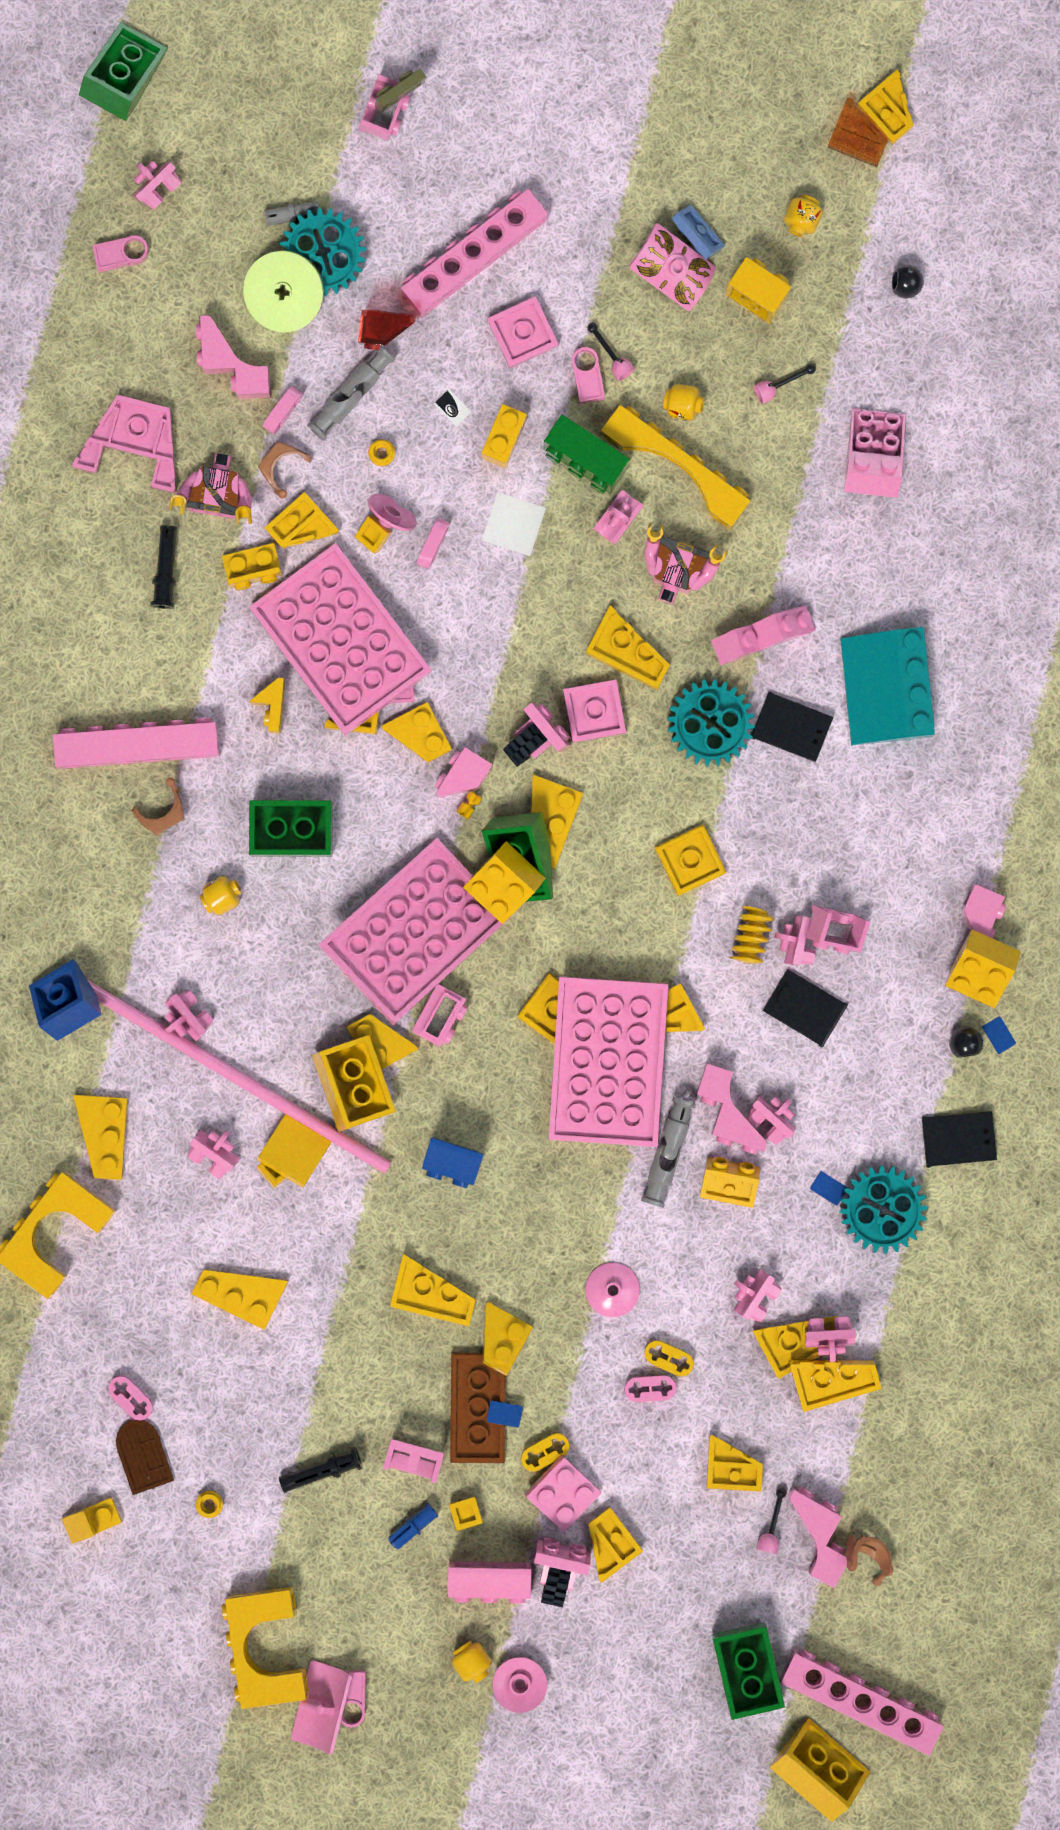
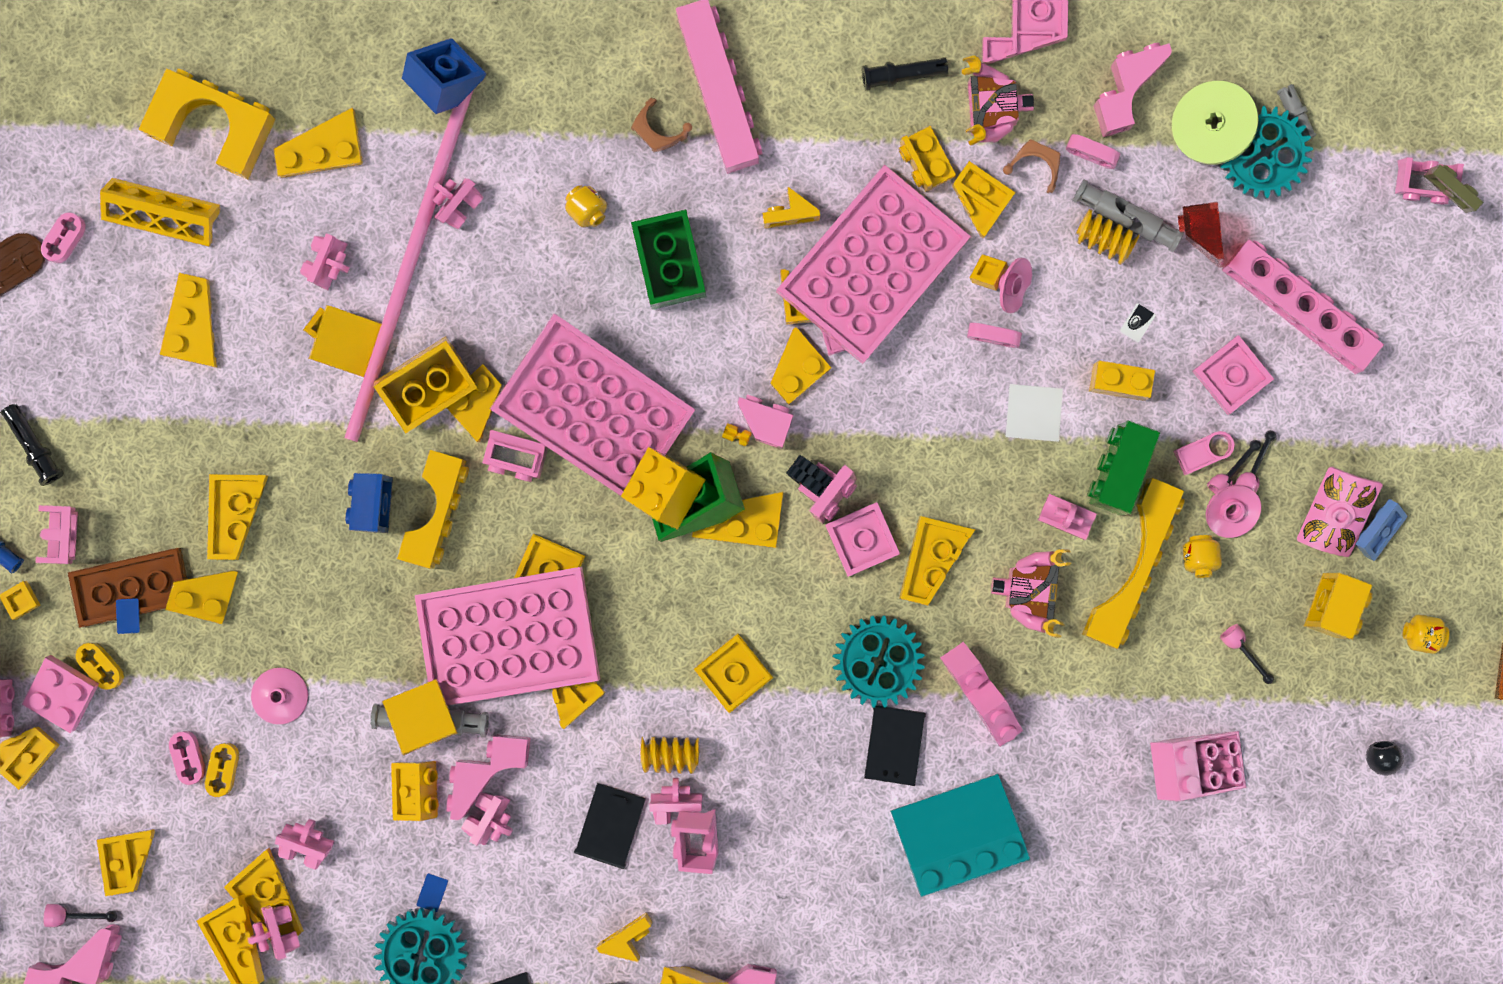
camera: 85 degrees right, 0 degrees up
(123, 1298) = (157, 205): none -> yellow fence
(366, 418) = (1106, 237): none -> yellow piece
(381, 444) = (1080, 255): yellow plate -> none
(442, 1086) = (424, 544): none -> yellow arch
(624, 342) = (1249, 478): none -> hinge
(657, 359) = (1240, 517): none -> bright pink dish
(663, 1157) = (419, 717): none -> yellow tile
(913, 1023) = (619, 942): none -> yellow slope

